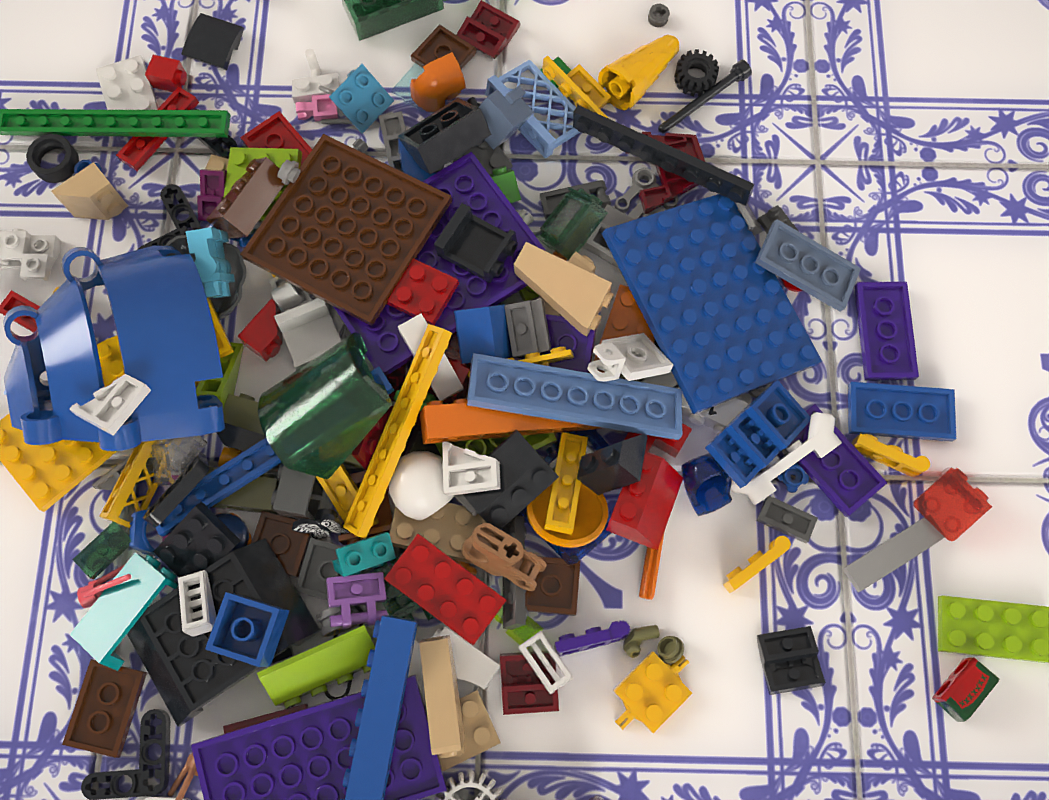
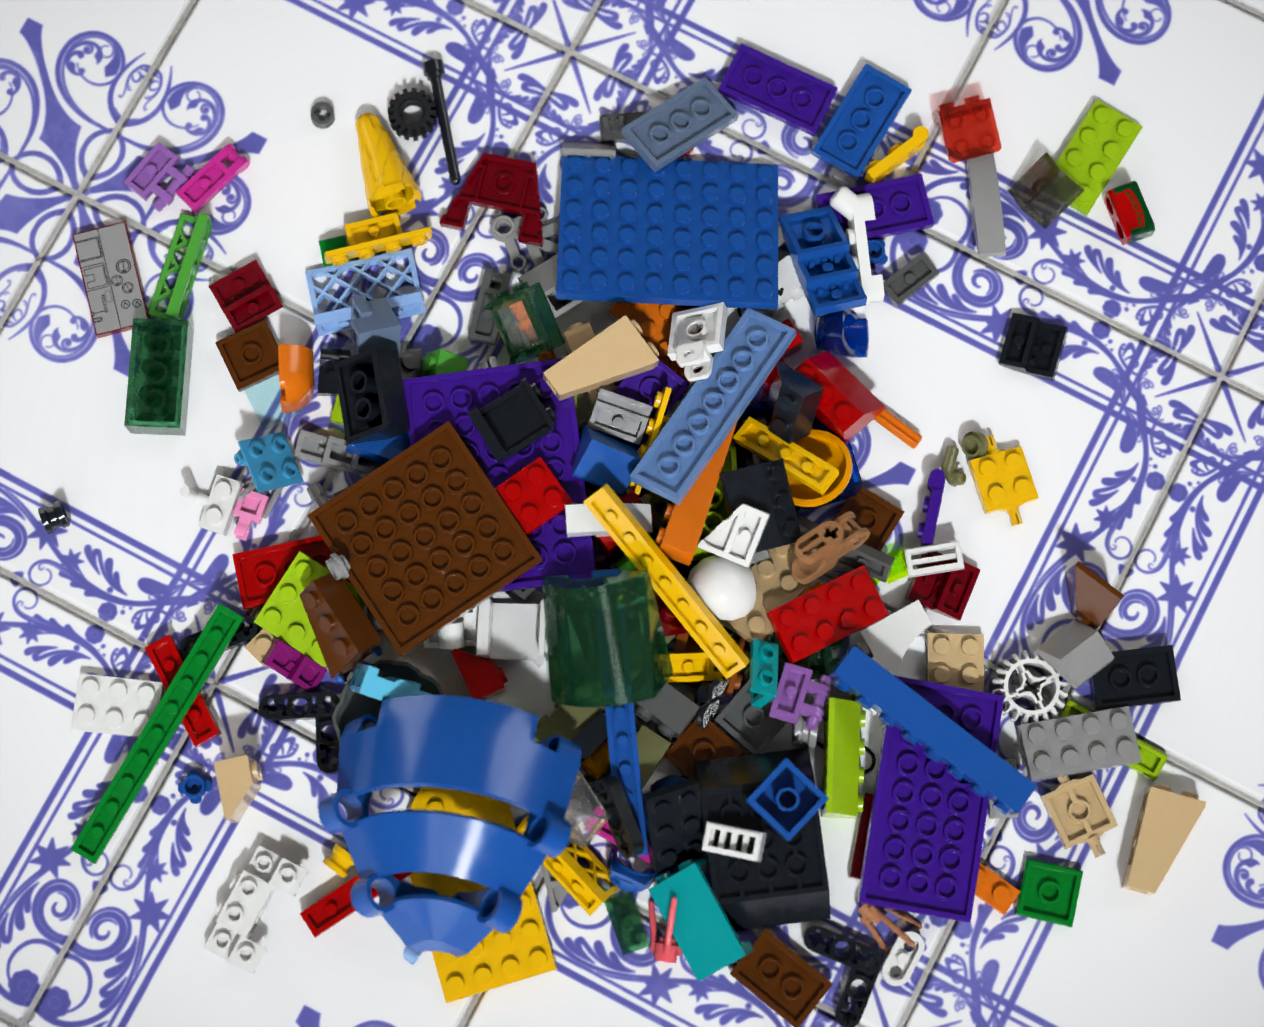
camera: 65 degrees left, 5 degrees up
(42, 146) = (139, 811): black tyre -> none
(113, 404) = (530, 818): white wing -> none
(165, 73) = (121, 654): red brick -> none
(212, 41) = (103, 589): black slope -> none
(442, 696) = (923, 658): tan slope -> none
(663, 155) = (500, 195): black plate -> none
(757, 563) = (937, 328): yellow plate -> none
(938, 601) = (1045, 191): none -> clear smoke slope

